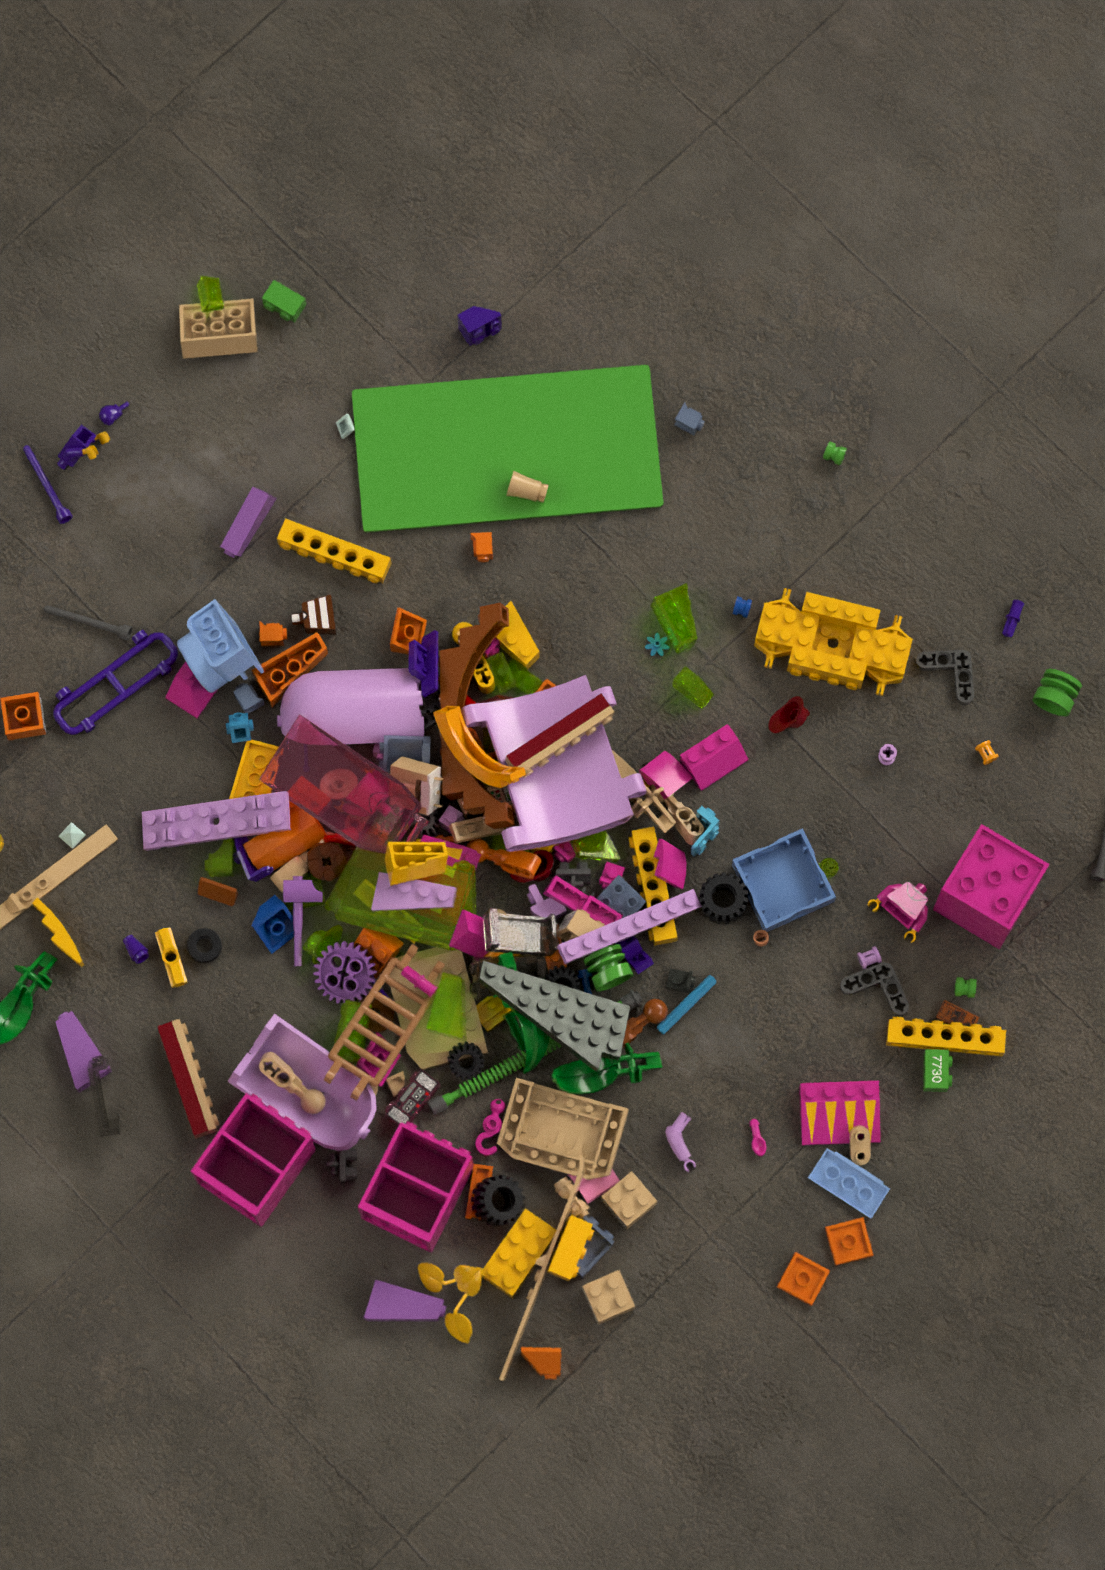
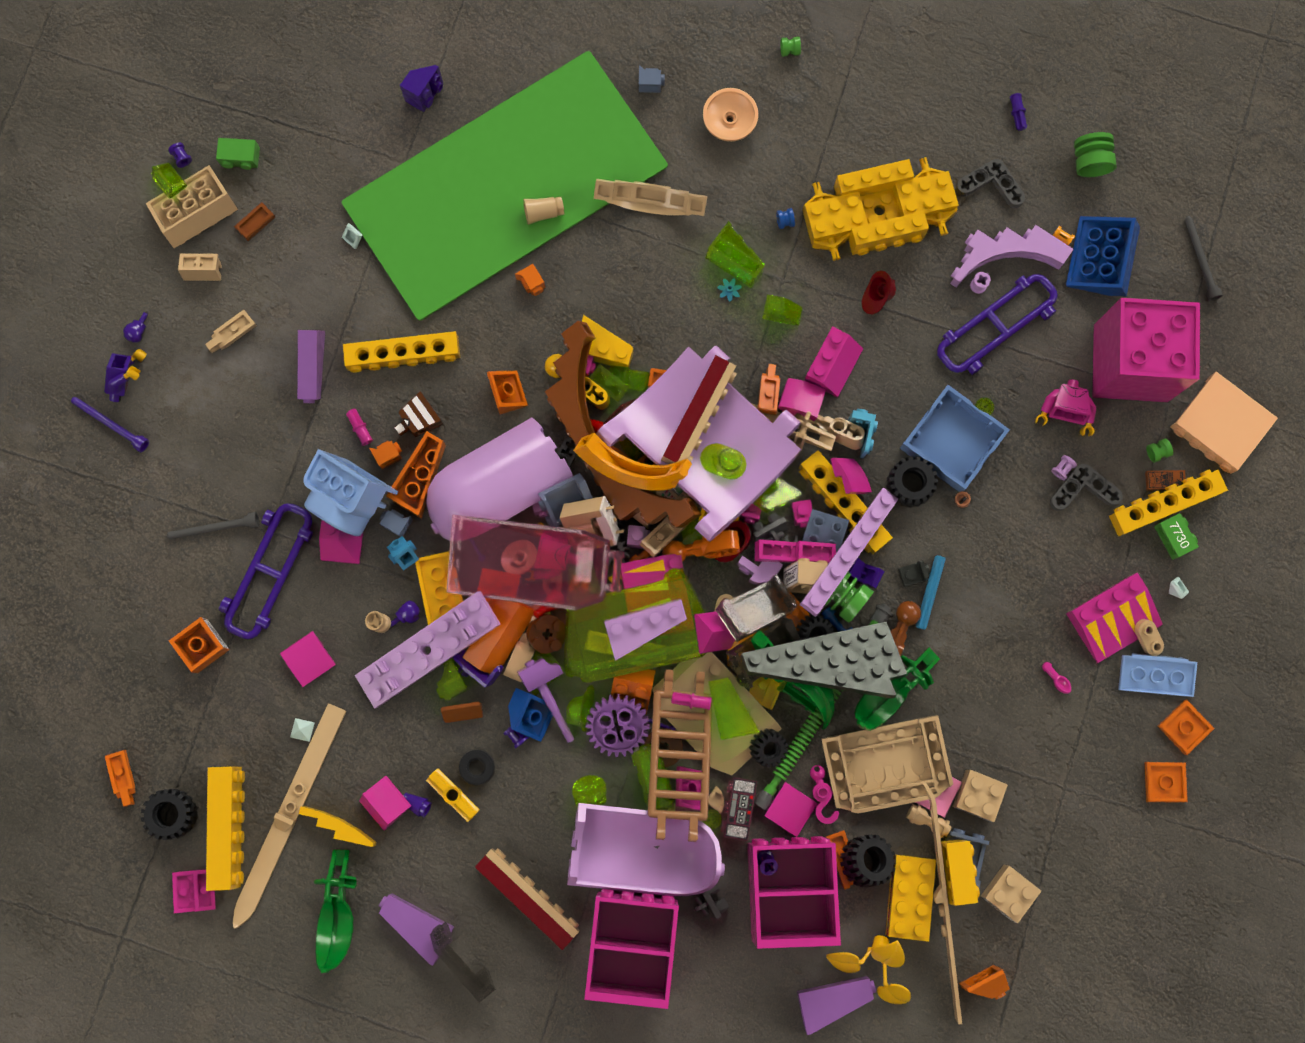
camera: 30 degrees left, 5 degrees up
(109, 776) = (307, 658): none -> dark pink slope
(109, 933) = (384, 802): none -> dark pink slope
(186, 776) = (374, 619): none -> tan wheel
(193, 457) = (230, 331): none -> tan hinge
(197, 386) = (199, 267): none -> tan hinge
(216, 782) = (407, 613): none -> dark purple piece
(232, 277) = (180, 155): none -> dark purple bush
(250, 933) = (516, 740): none -> dark purple bush
(261, 599) = (359, 427): none -> dark pink axle
(266, 369) = (254, 221): none -> dark orange tile
(292, 1013) = (589, 790): none -> clear neon green piece
(311, 1100) = (602, 851): tan beam -> none
(383, 1096) = (714, 819): none -> clear neon green tile
(405, 1155) = (765, 864): none -> dark purple bush
(414, 860) = (631, 595): yellow wedge -> none
(424, 662) = (538, 409): dark purple bracket -> none
(457, 1124) = (790, 809): none -> dark pink slope
(560, 790) = (723, 461): none -> clear neon green piece
(628, 526) = (650, 198): none -> tan piece
(639, 753) = (769, 391): none -> orange hinge
(676, 1140) = (990, 719): lavender arm -> none
(746, 477) = (730, 104): none -> light nougat dish
(839, 824) = (974, 364): none -> dark purple bar
(912, 1116) = (1177, 588): none -> light aqua slope
(932, 733) = (1035, 245): none -> lavender arch
(1016, 787) = (1103, 255): none -> blue slope
(1037, 993) = (1224, 423): none -> light nougat panel

